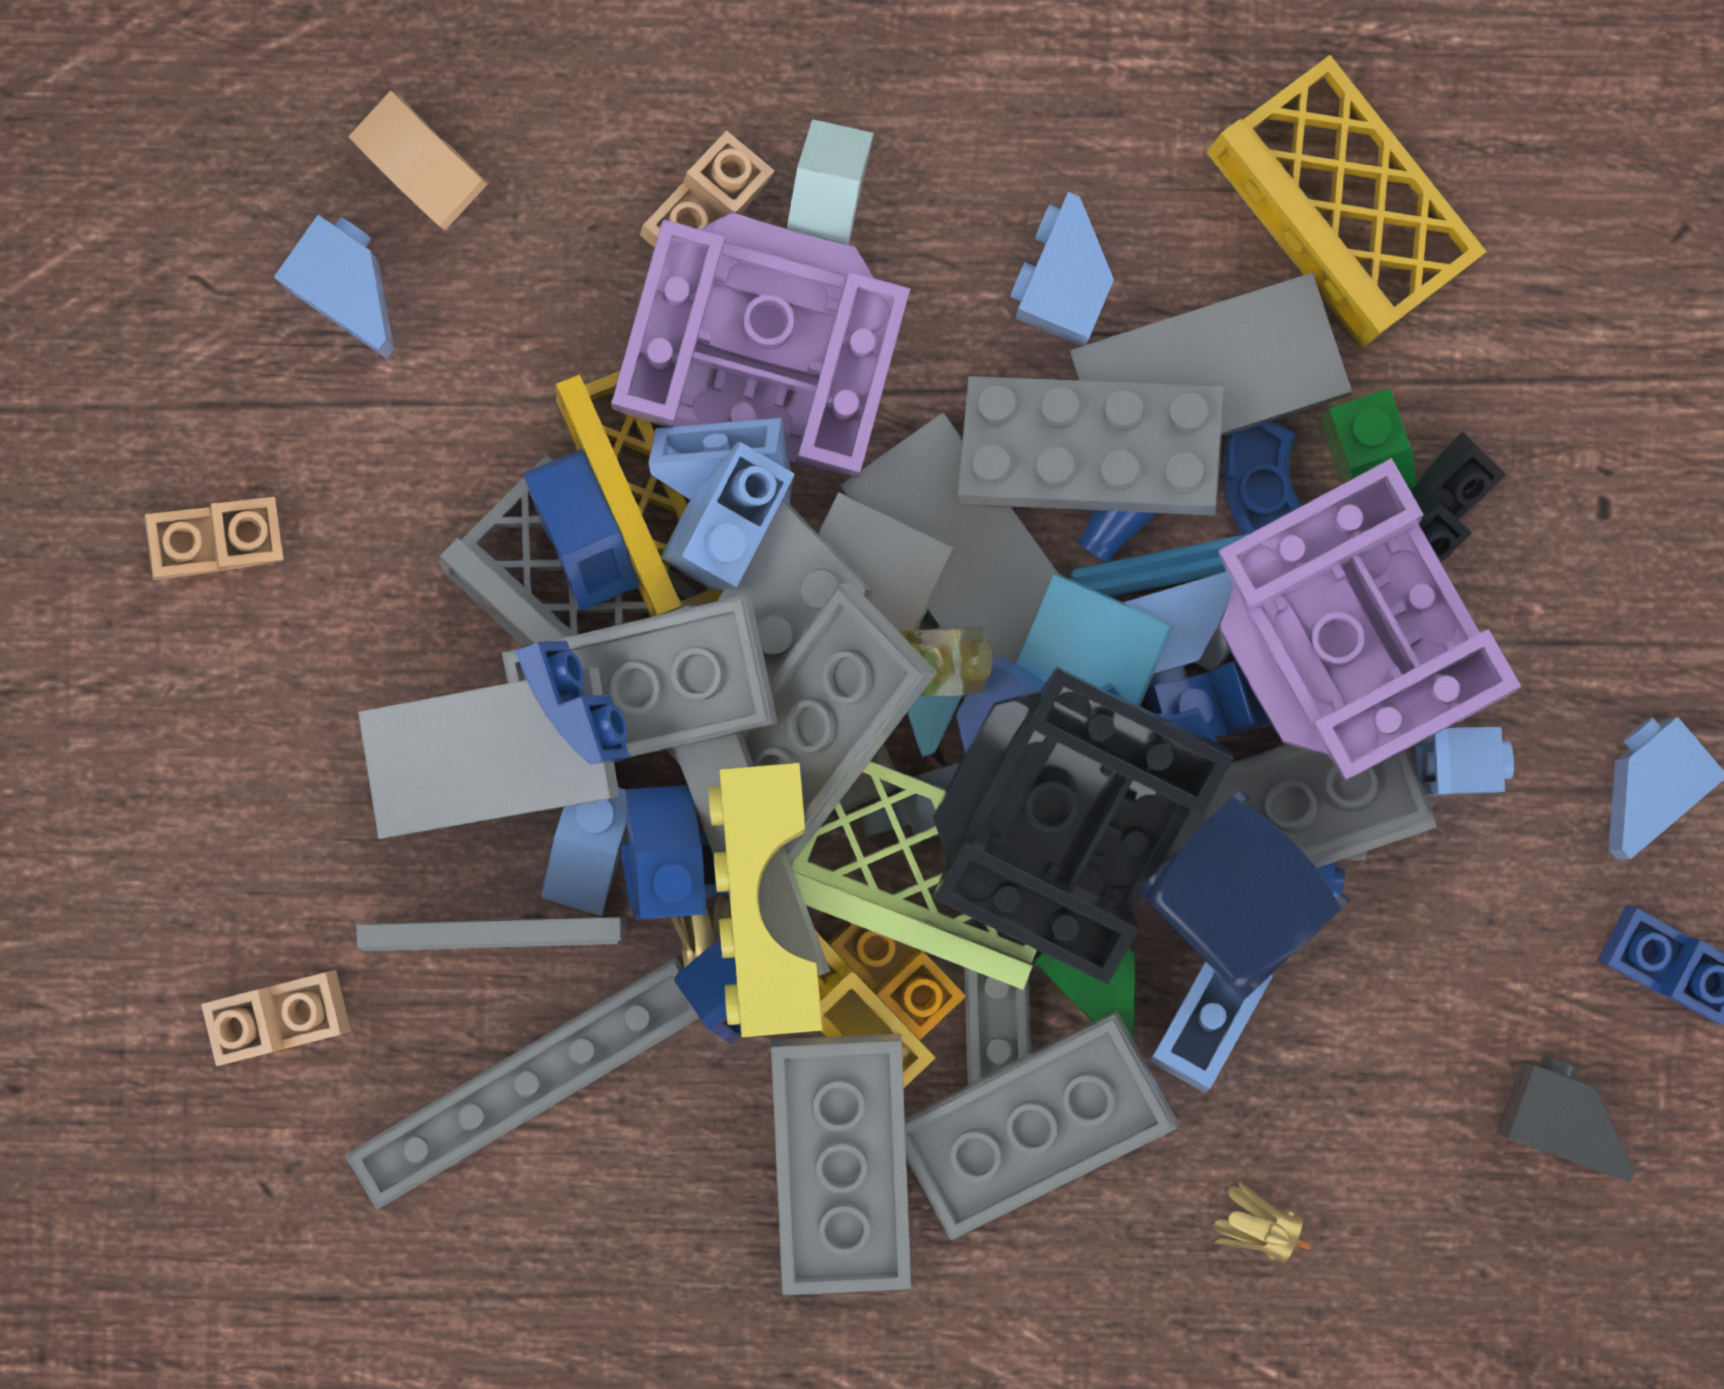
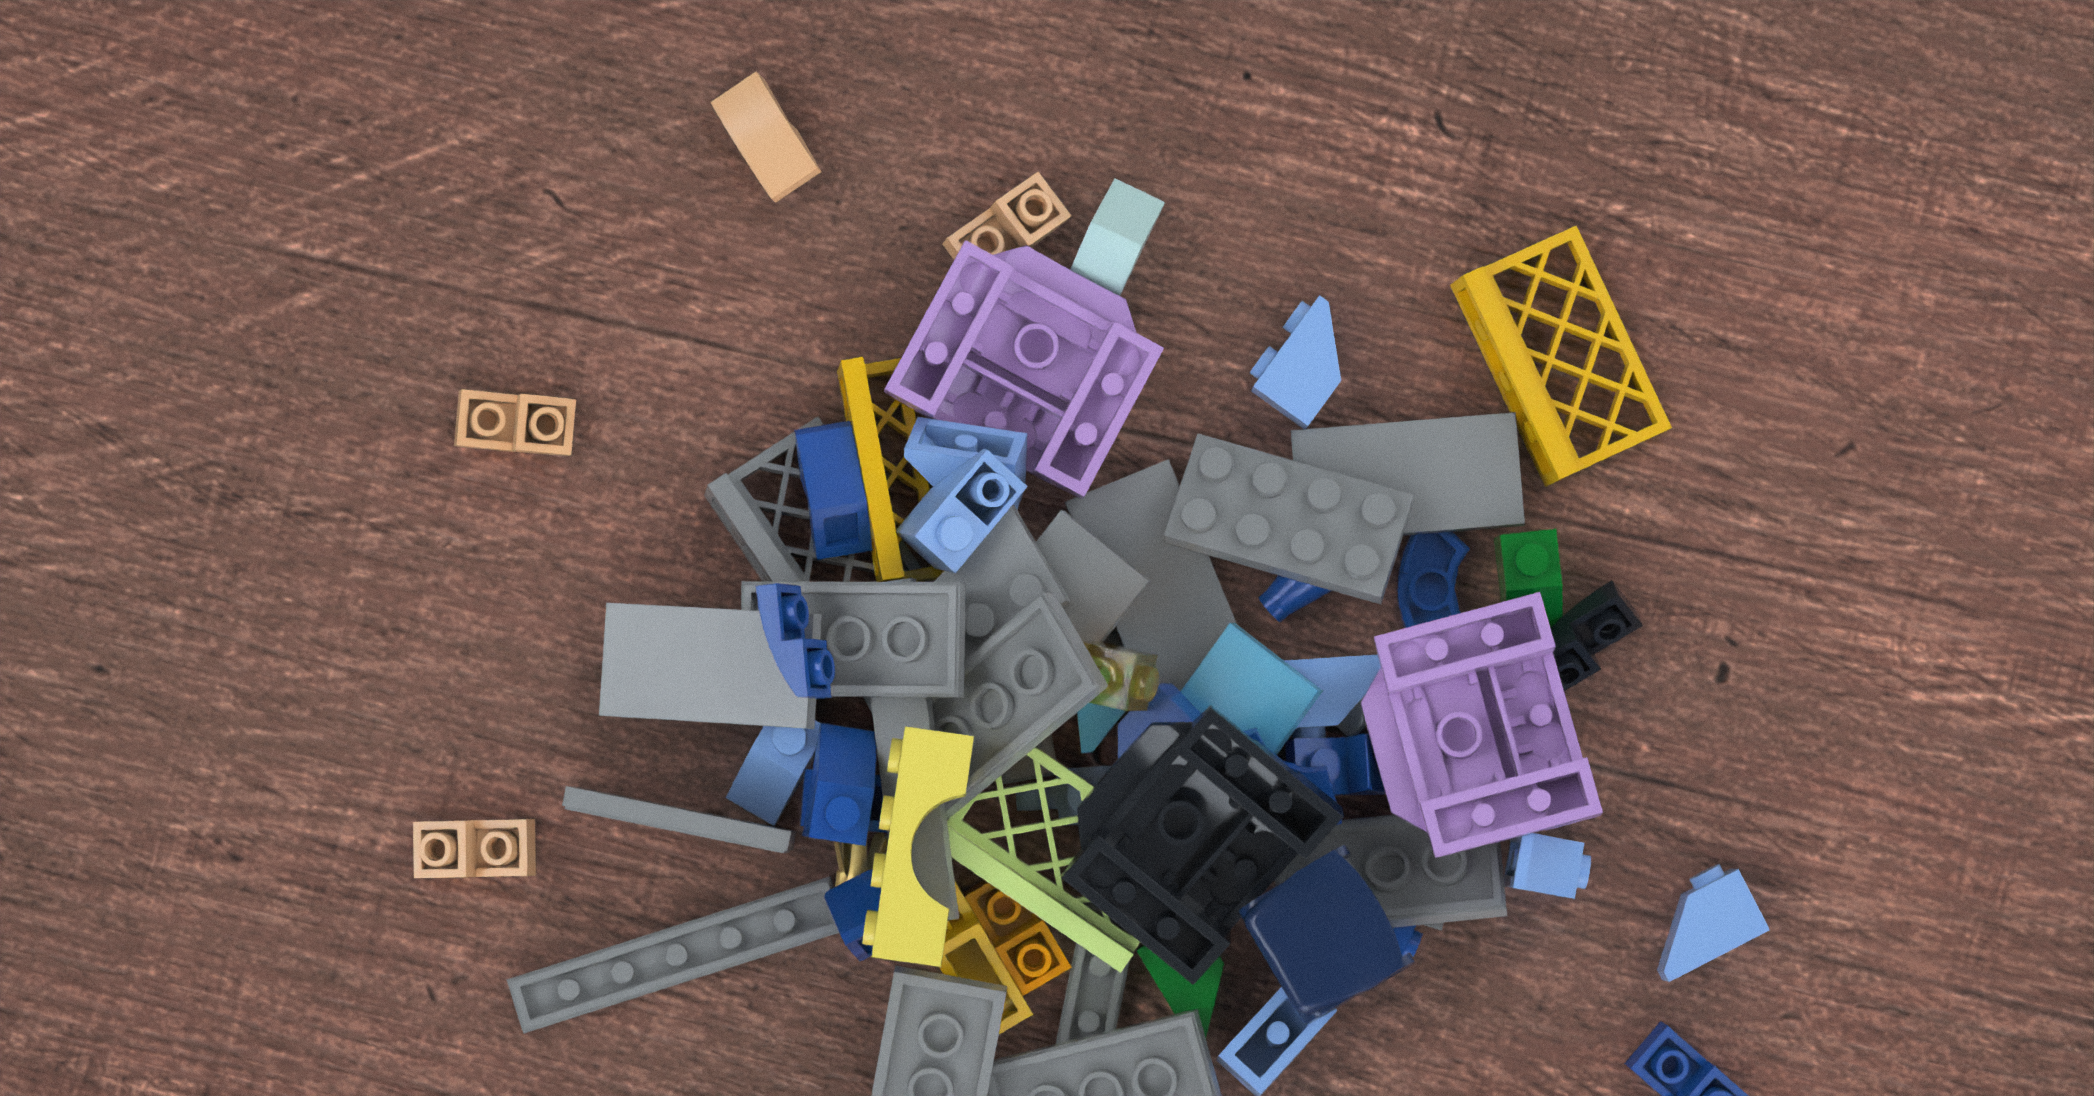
camera: 15 degrees right, 0 degrees up
(340, 280) = (675, 226): light blue slope -> none
(1155, 569) = (1319, 637): dark azure axle -> none

